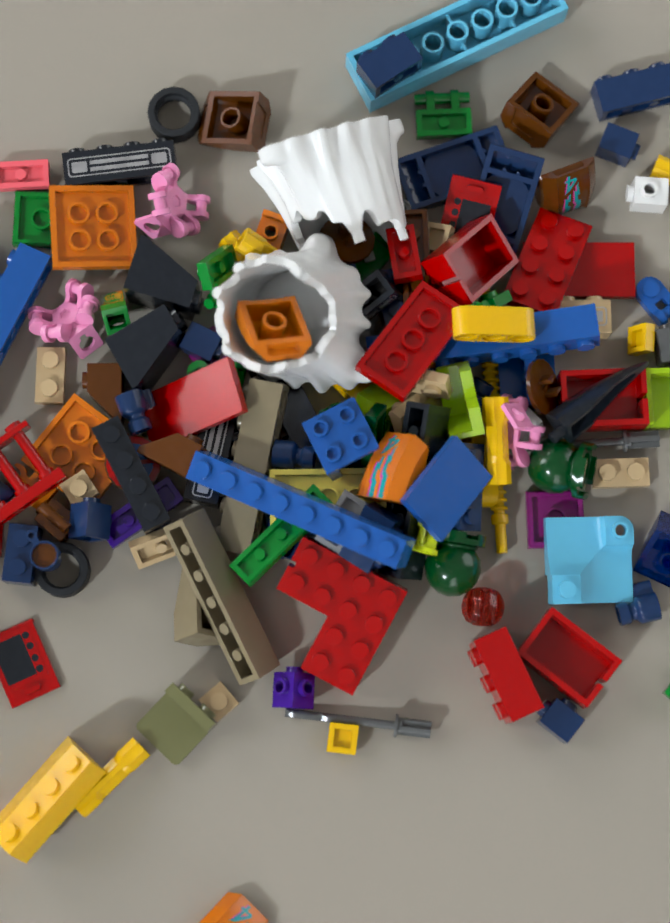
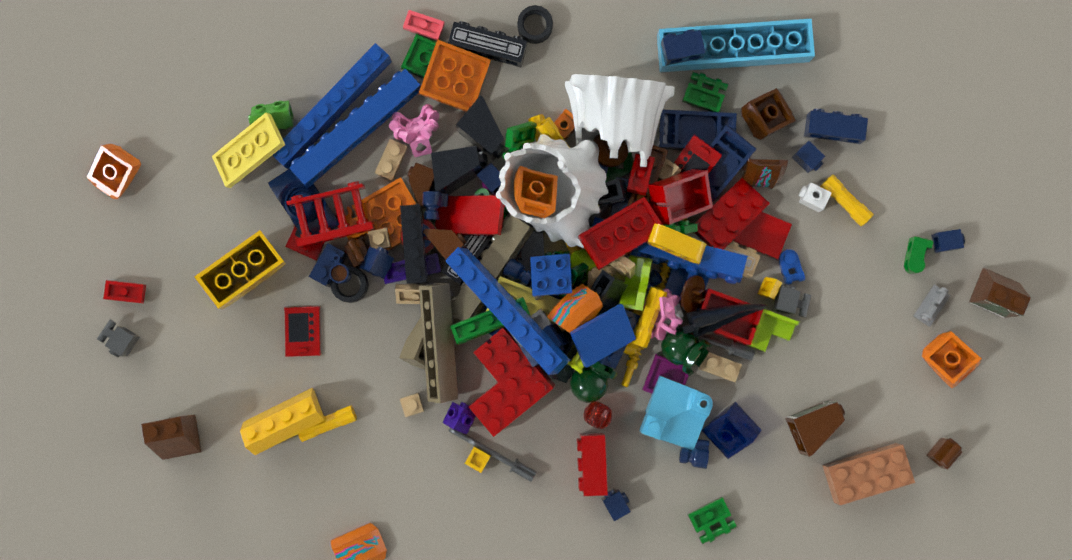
camera: 30 degrees right, 5 degrees up
(114, 311) = (445, 135): green leg -> none
(171, 207) = (508, 82): bright pink piece -> none
(176, 723) = (380, 408): olive bracket -> none
(235, 120) = (571, 44): reddish brown slope -> none
(568, 657) = (636, 468): red piece -> none

